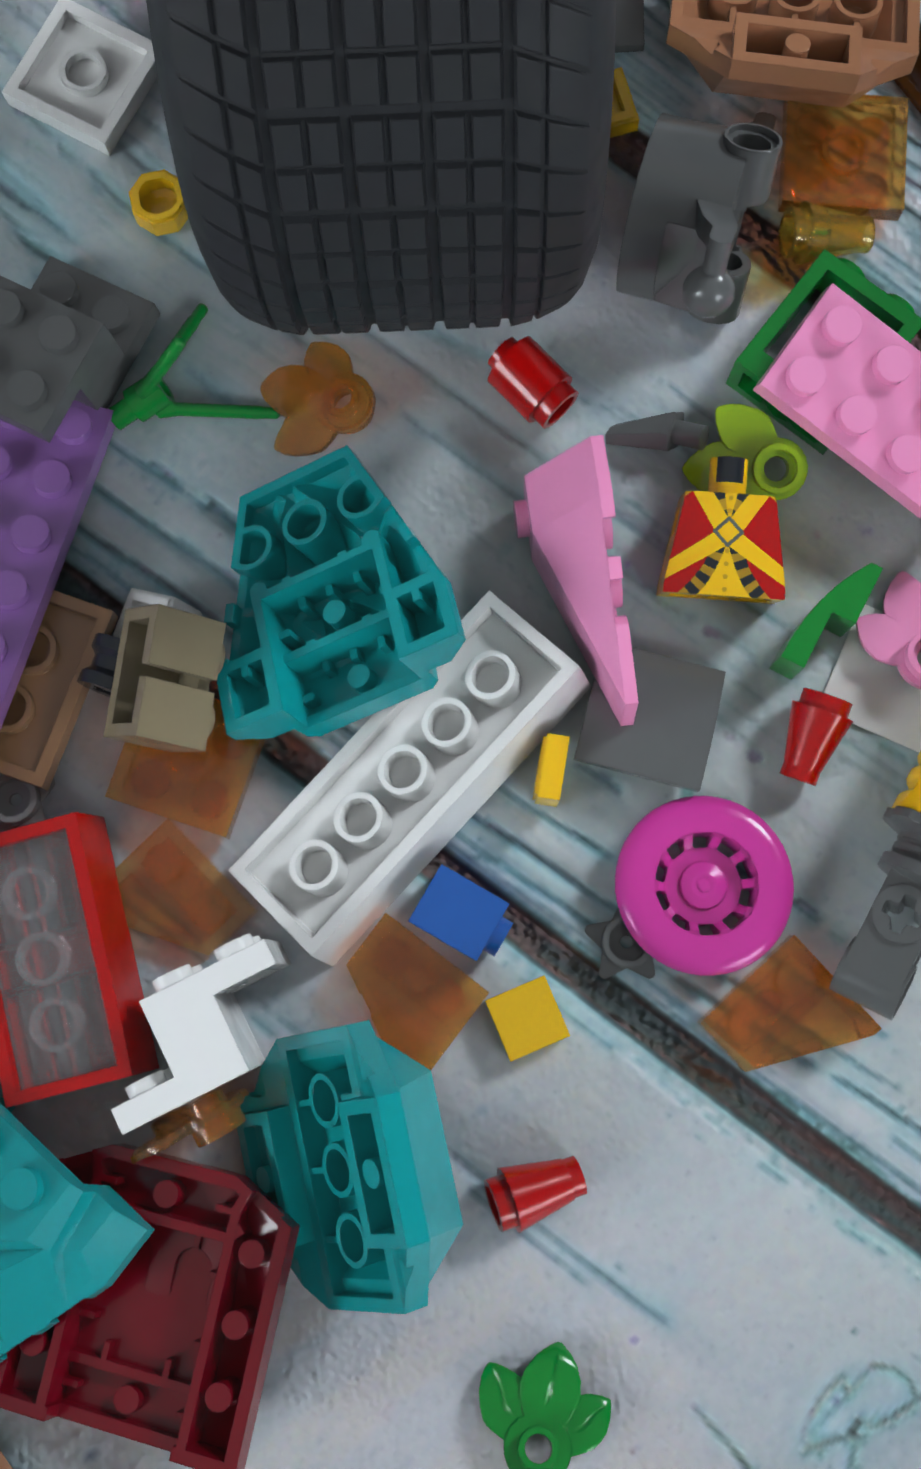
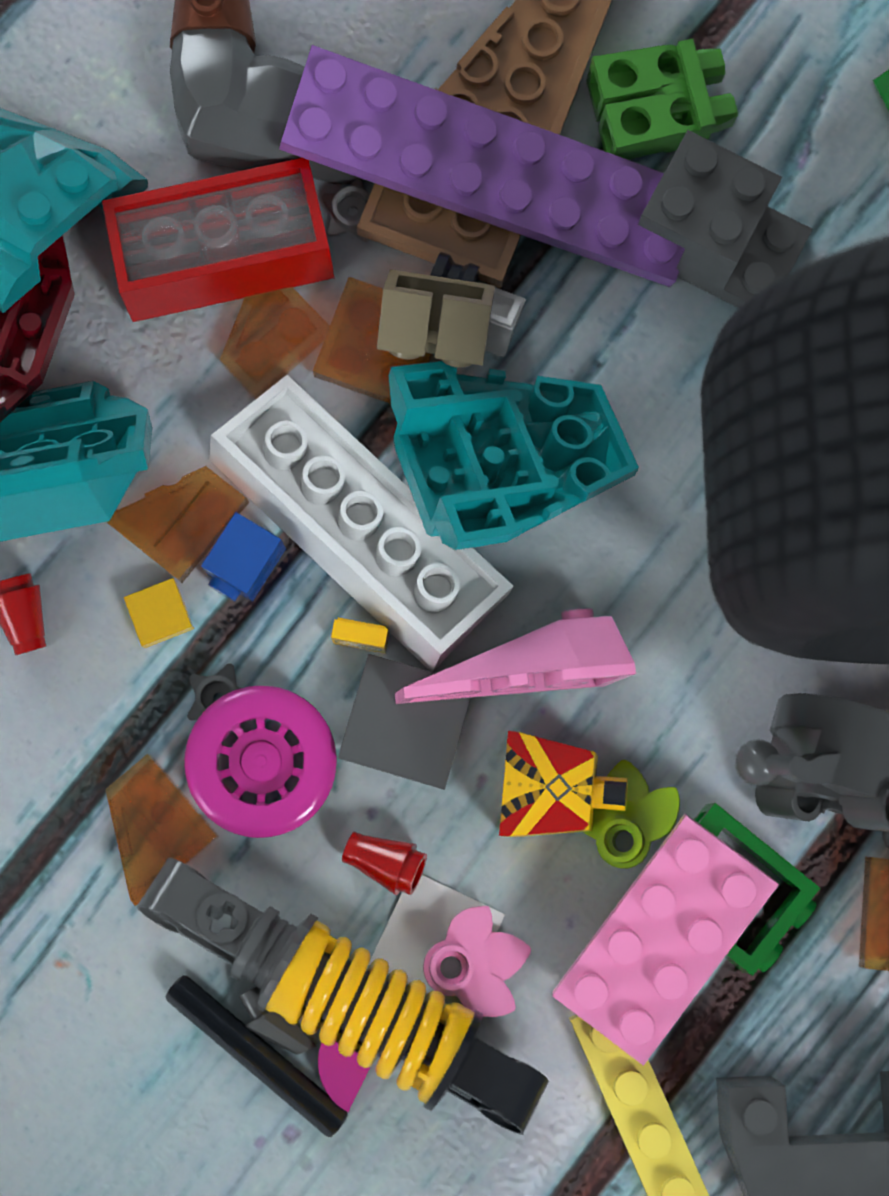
camera: 85 degrees right, 0 degrees up
(153, 397) = (689, 316): green plant -> none
(200, 1029) = (154, 348): white bracket -> none
(204, 1119) = (86, 348): clear orange plate -> none
(309, 399) = (672, 446): clear orange plate -> none
(531, 381) = (697, 632): red brick -> none
(659, 433) = (656, 740): dark grey bar -> none
(813, 227) = (842, 895): clear yellow cone -> none
(834, 613) = (495, 887): green slope -> none

